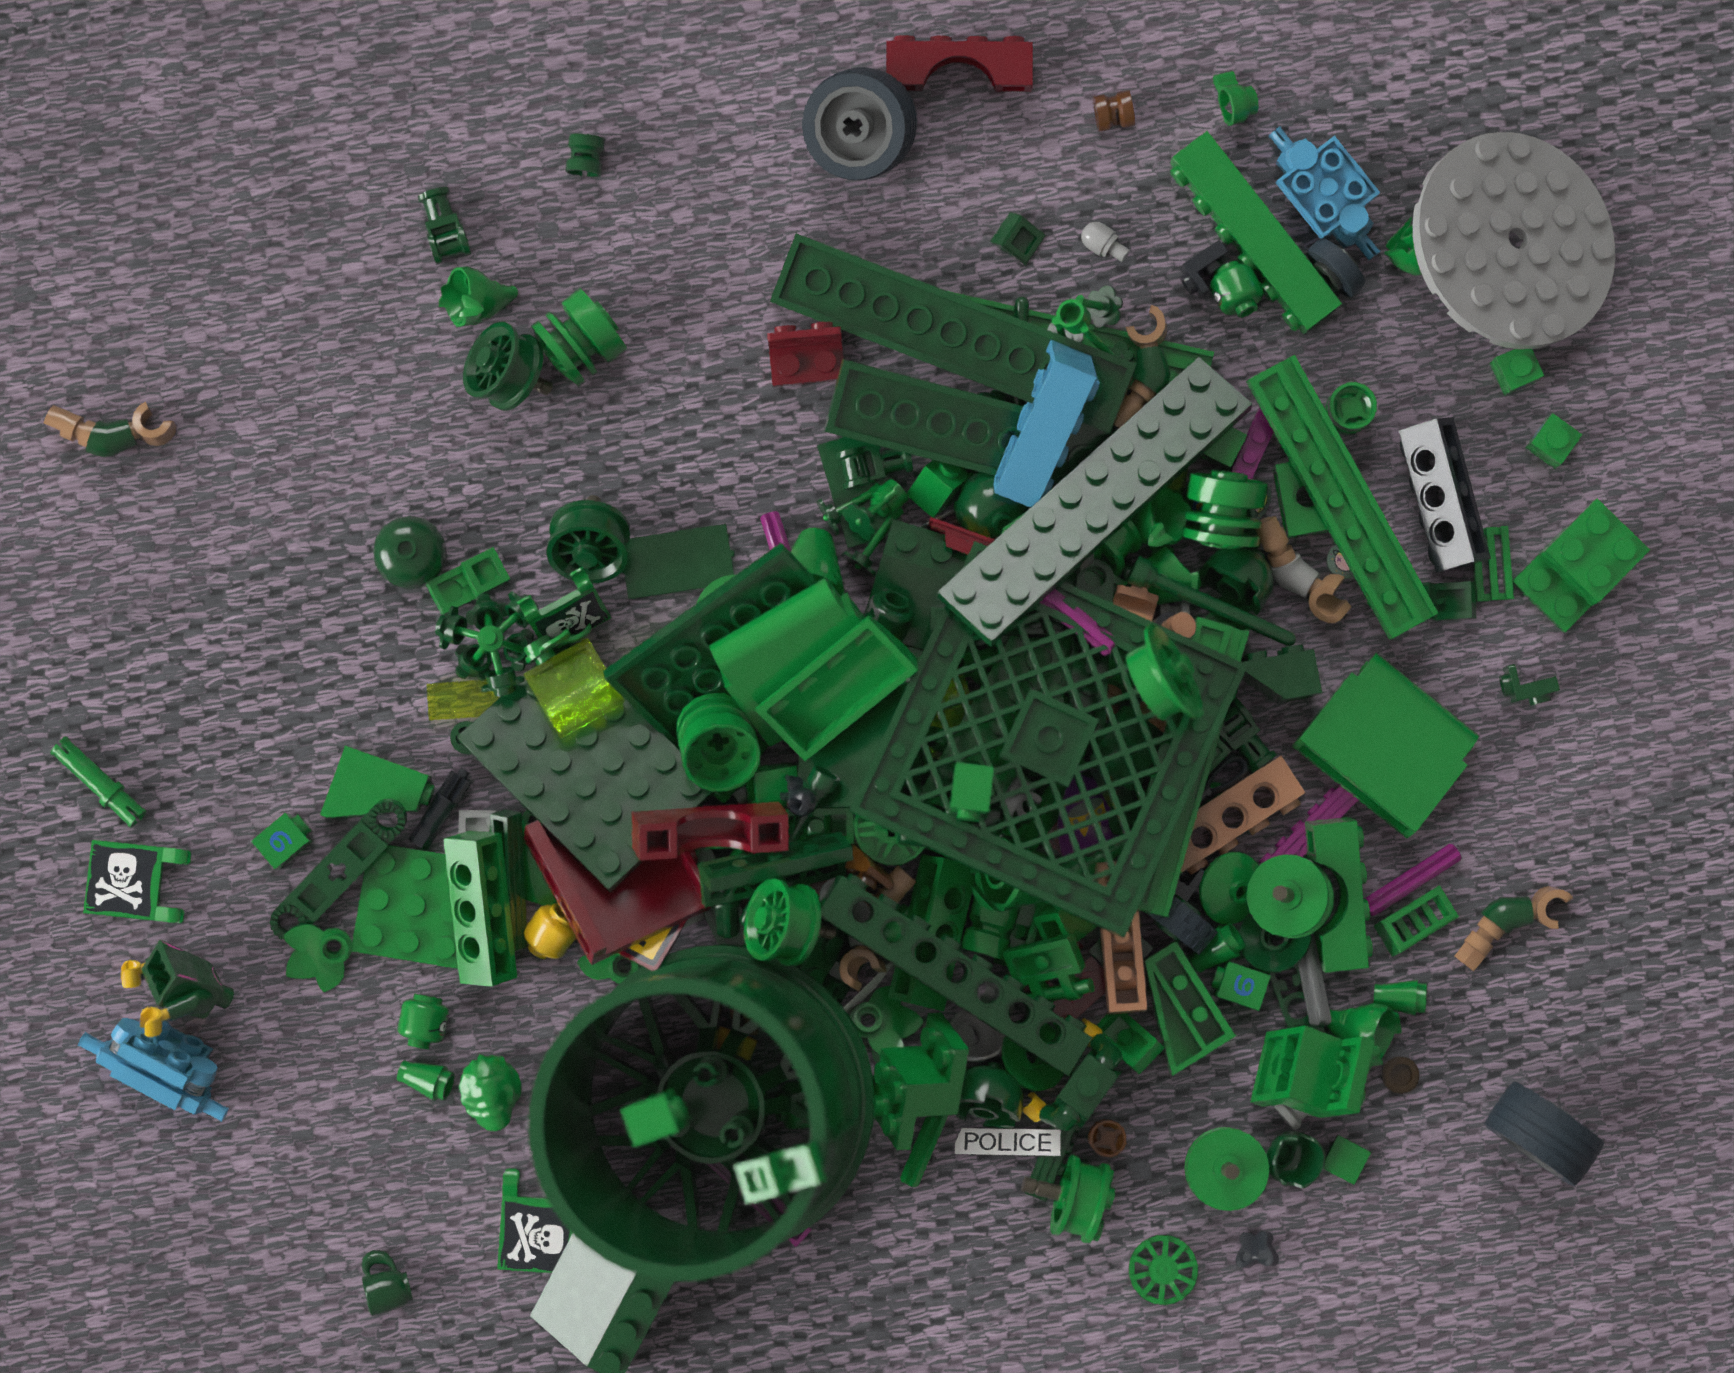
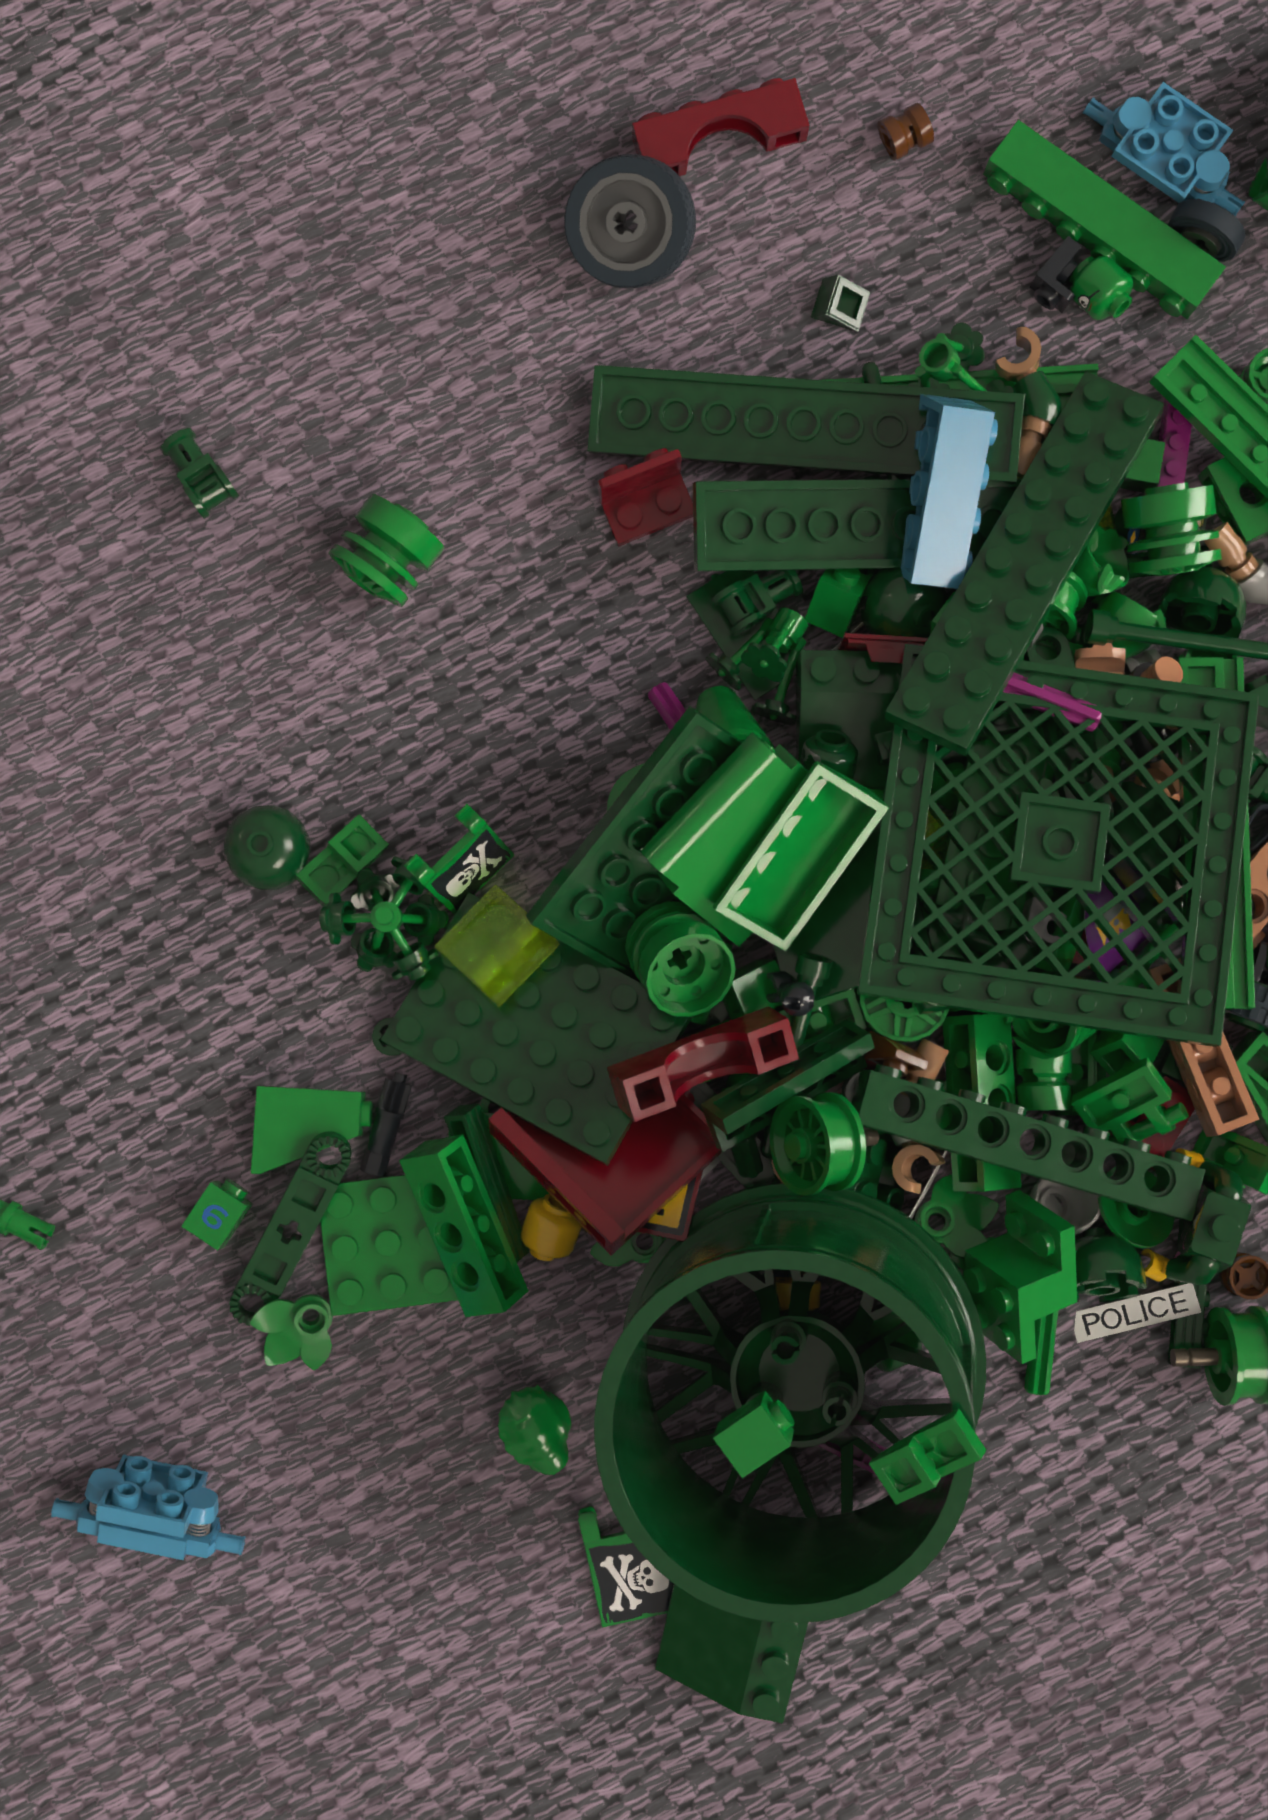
camera: 15 degrees left, 0 degrees up
(127, 881) = (56, 1309): flag -> none
(178, 983) = (146, 1415): dark green torso -> none
(386, 1289) = (483, 1690): dark green piece -> none
(423, 1020) = (436, 1371): green head -> none
(428, 1079) = (461, 1435): green cone -> none
(458, 700) = (369, 997): clear neon green tile -> none
(473, 296) = (255, 541): green hat -> none
(474, 820) = (428, 1127): light grey tile -> none
(504, 367) = (312, 607): dark green wheel -> none
(545, 647) = (449, 909): green plate -> none
(585, 155) = (333, 348): dark green wheel -> none
(588, 536) = (462, 769): dark green wheel -> none
(677, 561) = (567, 770): dark green piece -> none
(971, 791) = (995, 928): green brick -> none
(1103, 241) = (935, 278): light grey cylinder -> none
(1164, 676) = (1178, 732): green wheel -> none
(1242, 99) = (1042, 79): green piece -> none

